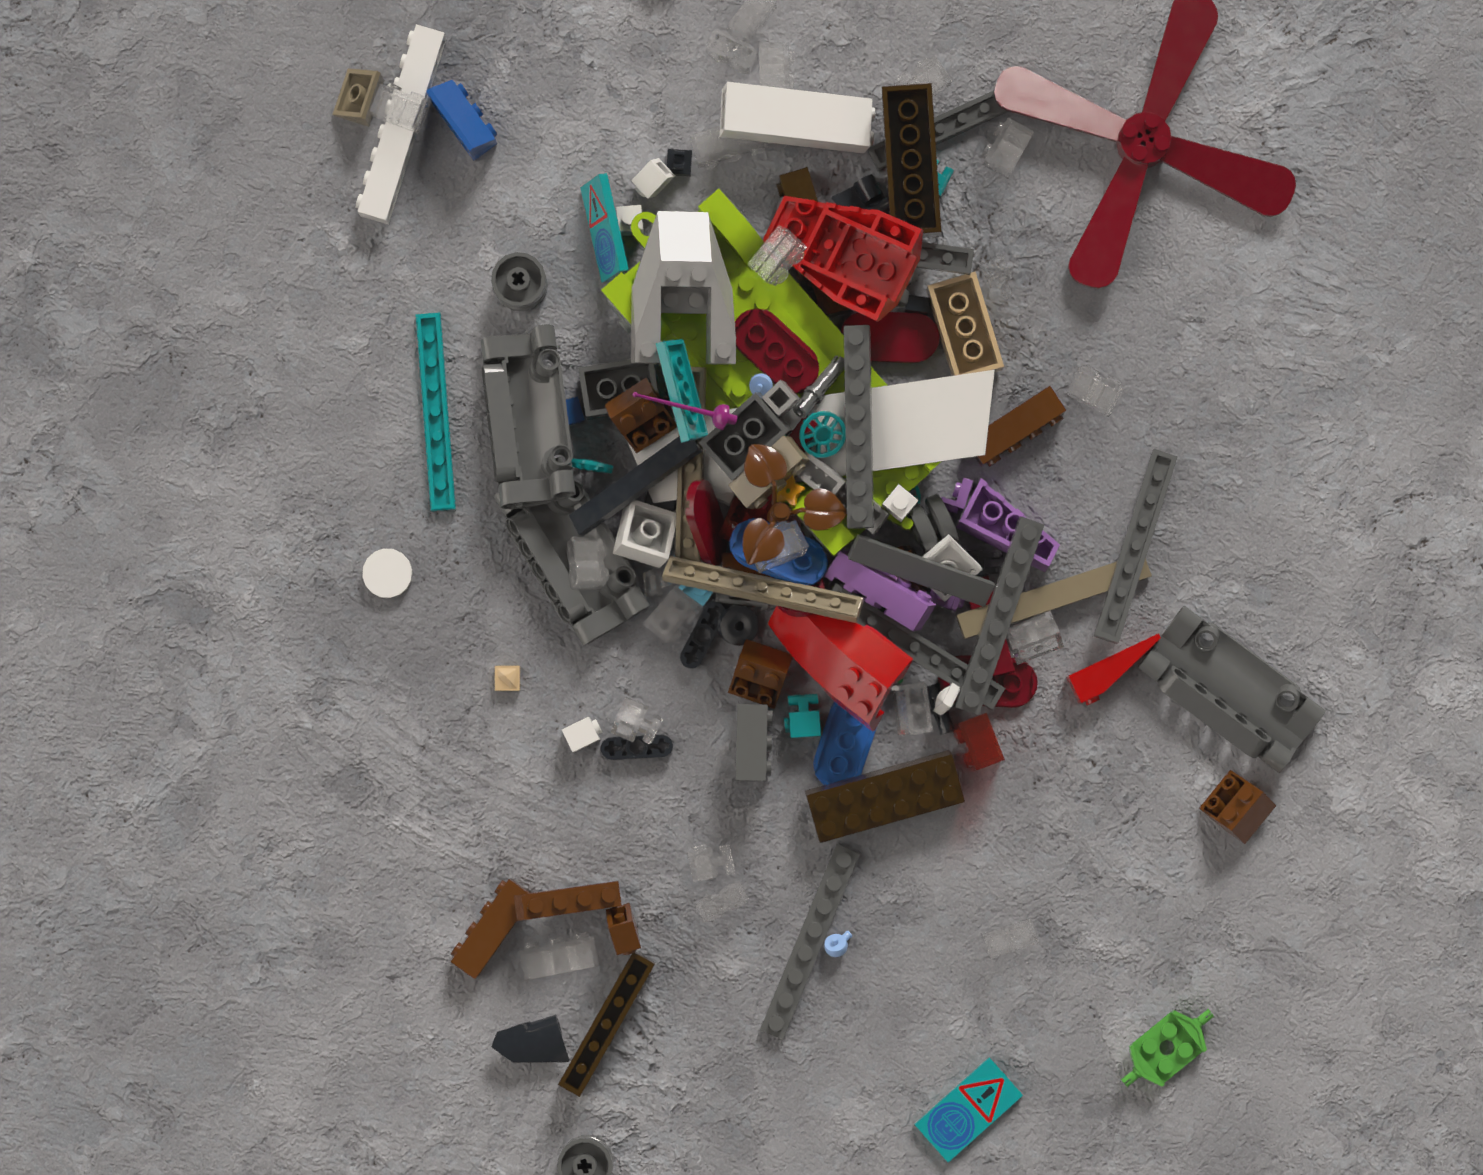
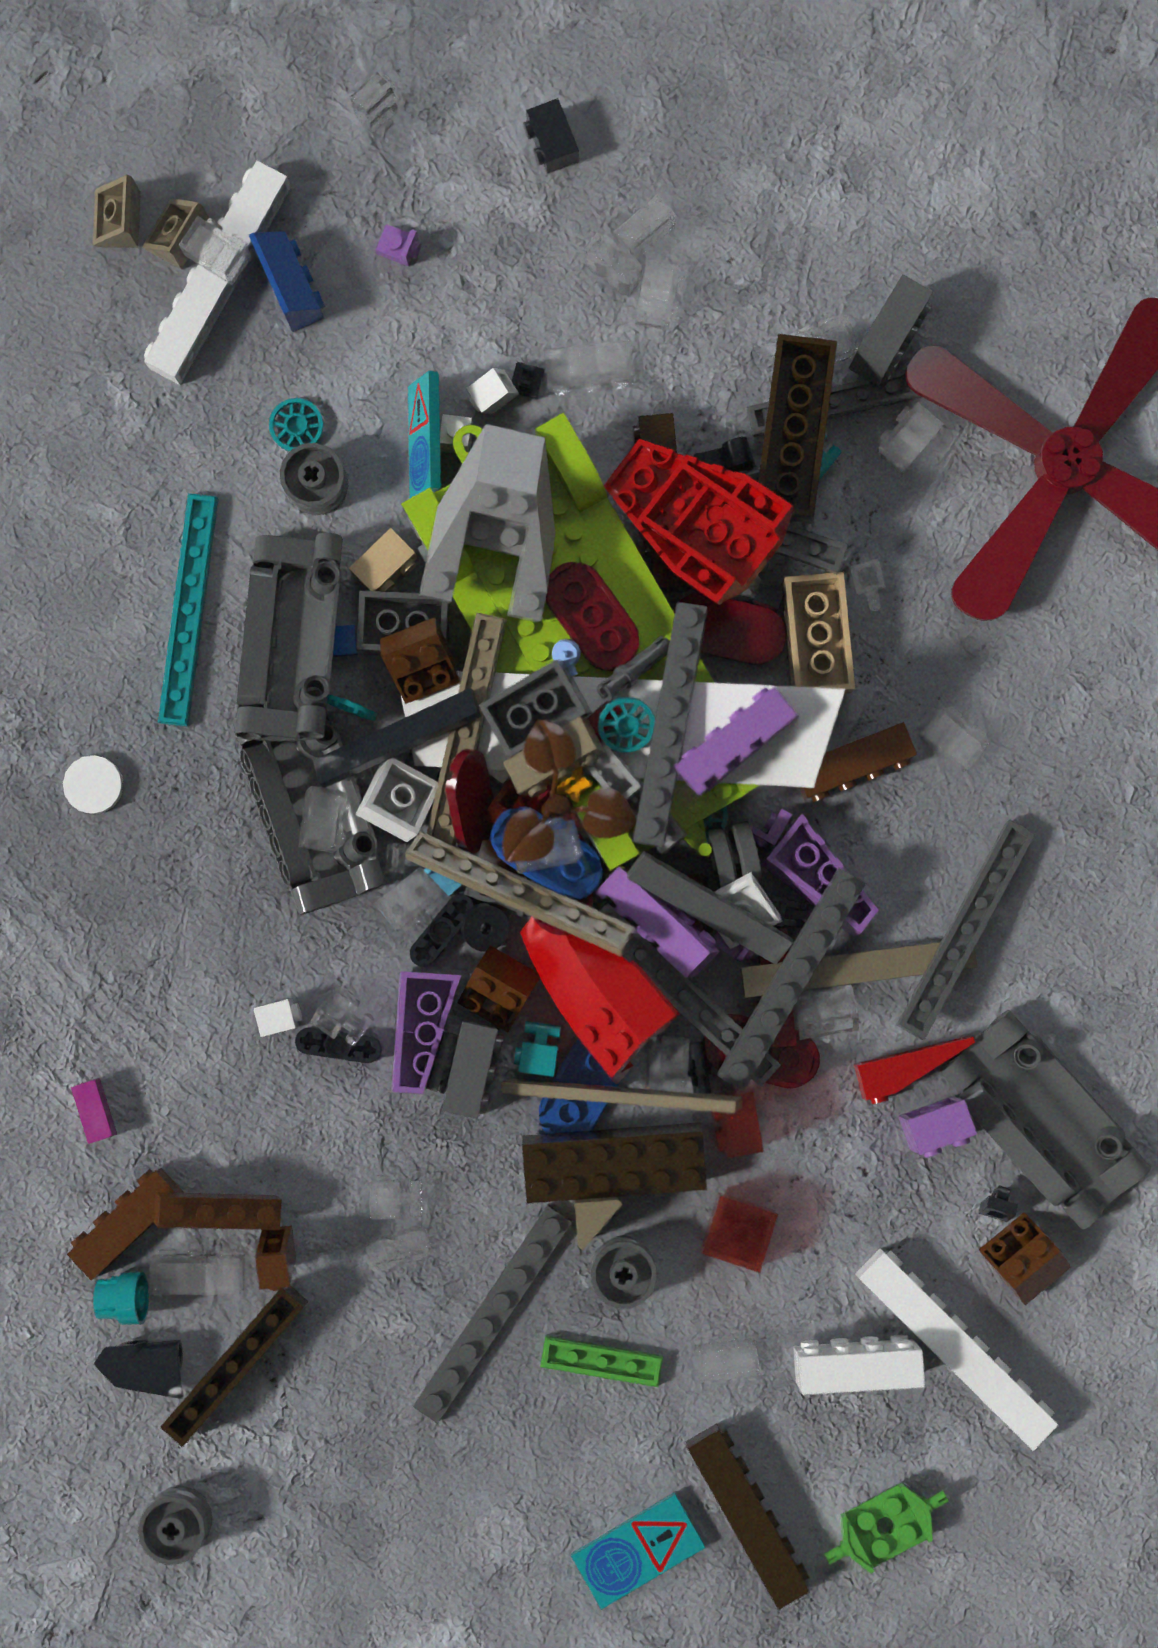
camera: 10 degrees right, 0 degrees up
(305, 92) = (117, 214): none -> dark tan slope
(445, 842) = (94, 1110): none -> magenta slope
(493, 238) = (295, 423): none -> teal wheel
(503, 989) = (122, 1298): none -> teal piece
(507, 678) = (205, 934): tan tile -> none
(548, 70) = (398, 245): none -> medium lavender bracket
(592, 340) = (384, 563): none -> tan piece
(681, 389) = (470, 639): teal tile -> none
(701, 709) = (420, 1022): none -> medium lavender wedge
(720, 415) = (508, 678): magenta sword -> none
(726, 743) = (443, 1062): none -> dark grey pin
(777, 256) = (616, 505): clear brick -> none
(781, 398) = (585, 672): light grey brick -> none
(796, 117) = (672, 353): white brick -> none
(836, 944) = (523, 1324): light blue piece -> none
(875, 842) = (592, 1216): none -> dark tan slope
(879, 738) = (622, 1095): none -> dark tan tile
(899, 503) = (700, 824): white brick -> none
(907, 962) = (601, 1361): none -> bright green tile
(915, 429) = (737, 741): none -> medium lavender wedge
(921, 894) = (619, 1290): none -> dark grey wheel
(946, 699) = (709, 1064): white tile -> none
(975, 63) = (892, 331): none -> dark grey brick
(998, 831) = (739, 1232): none -> clear red brick
(1052, 1062) = (748, 1517): none -> dark brown brick
(1117, 920) = (858, 1365): none -> white piece
(1143, 712) = (938, 1126): none -> medium lavender brick
(1196, 891) = (956, 1349): none -> white brick
(1207, 768) = (998, 1206): none -> black tile

